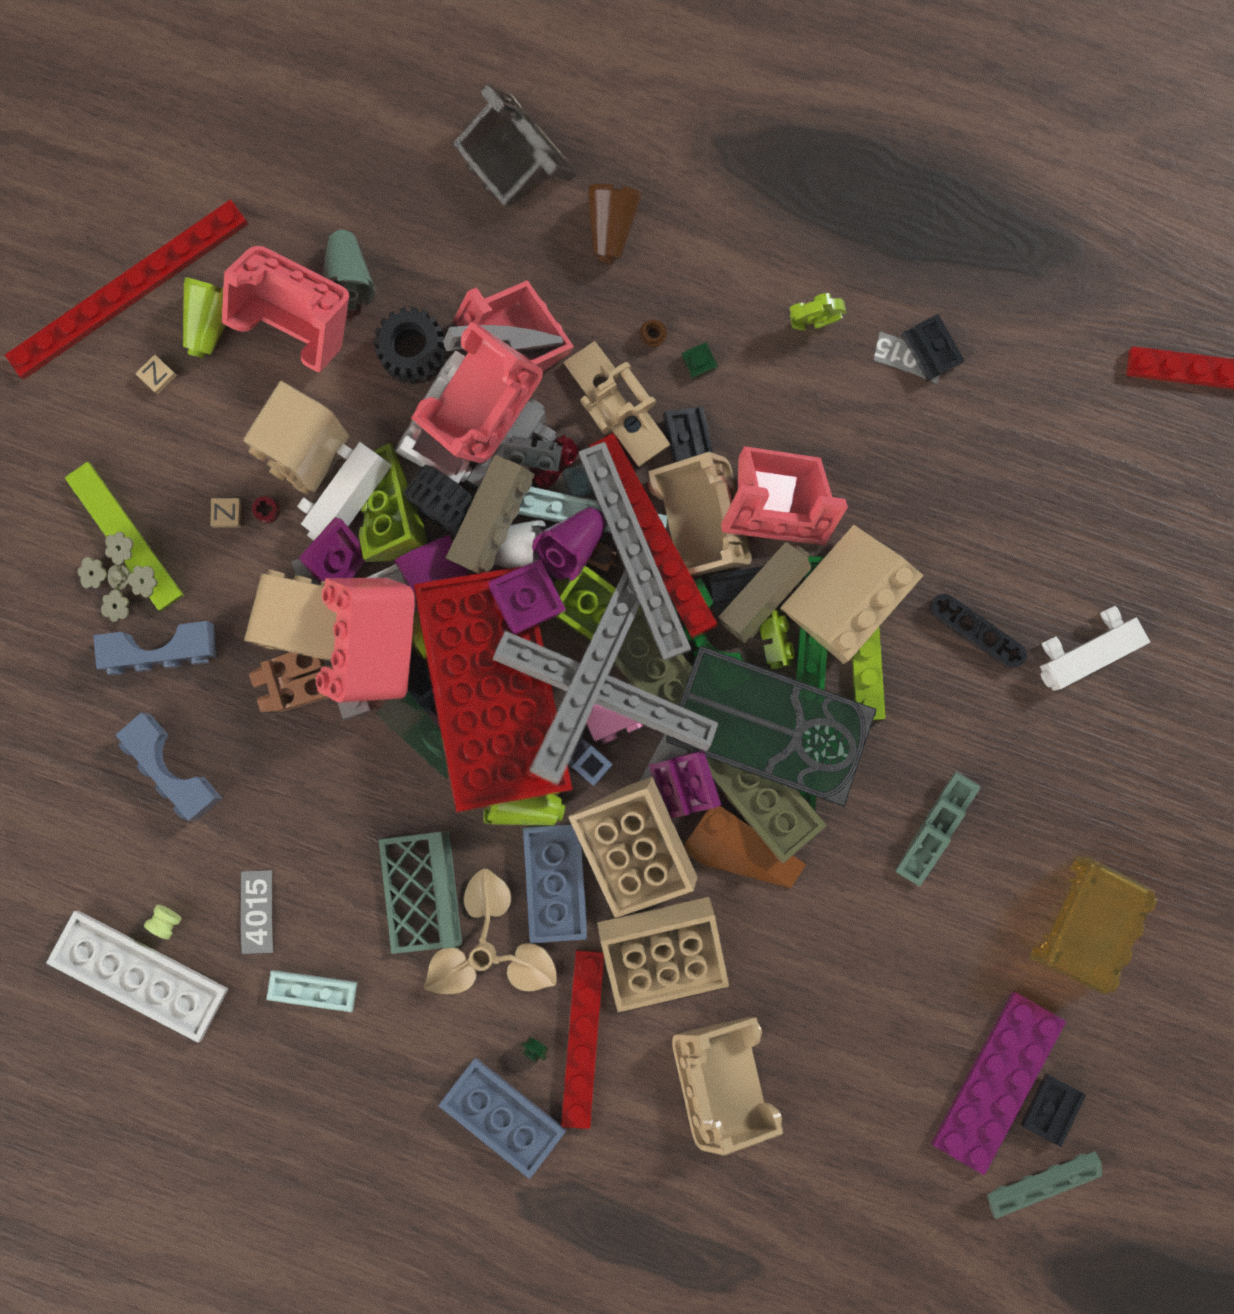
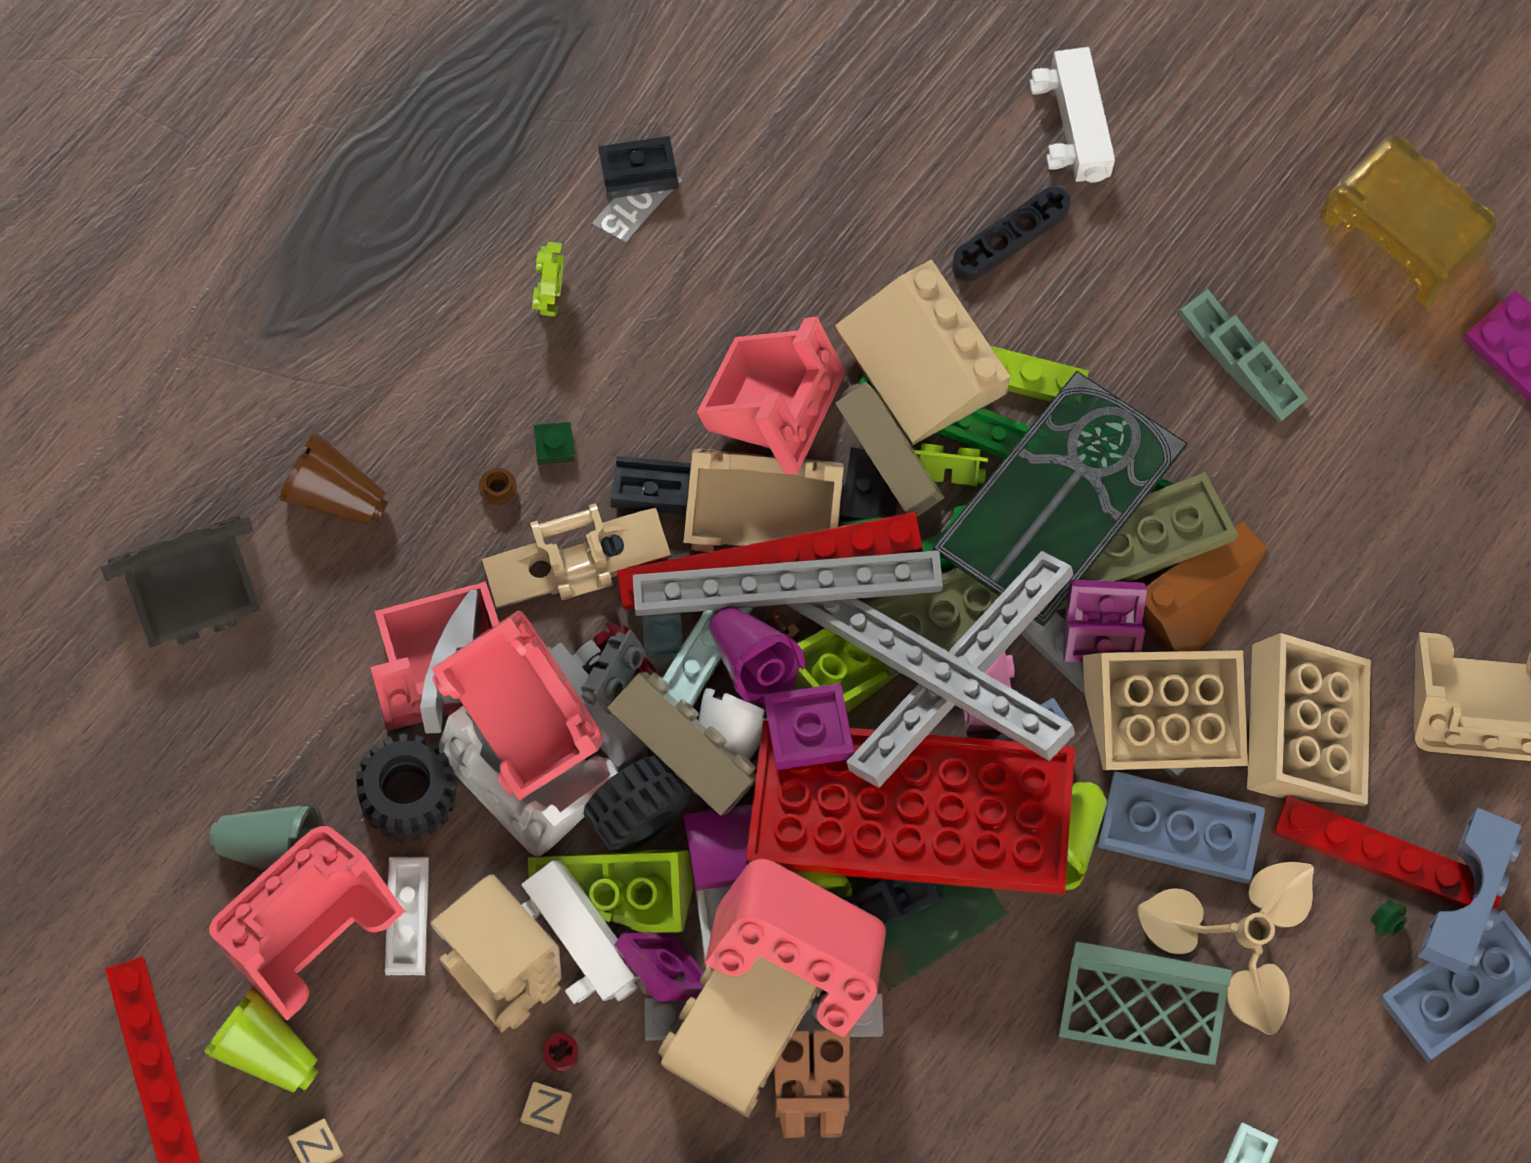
camera: 75 degrees left, 15 degrees down
(333, 378) = (408, 934): none -> white tile
(601, 1111) = (1486, 848): none -> sand blue arch

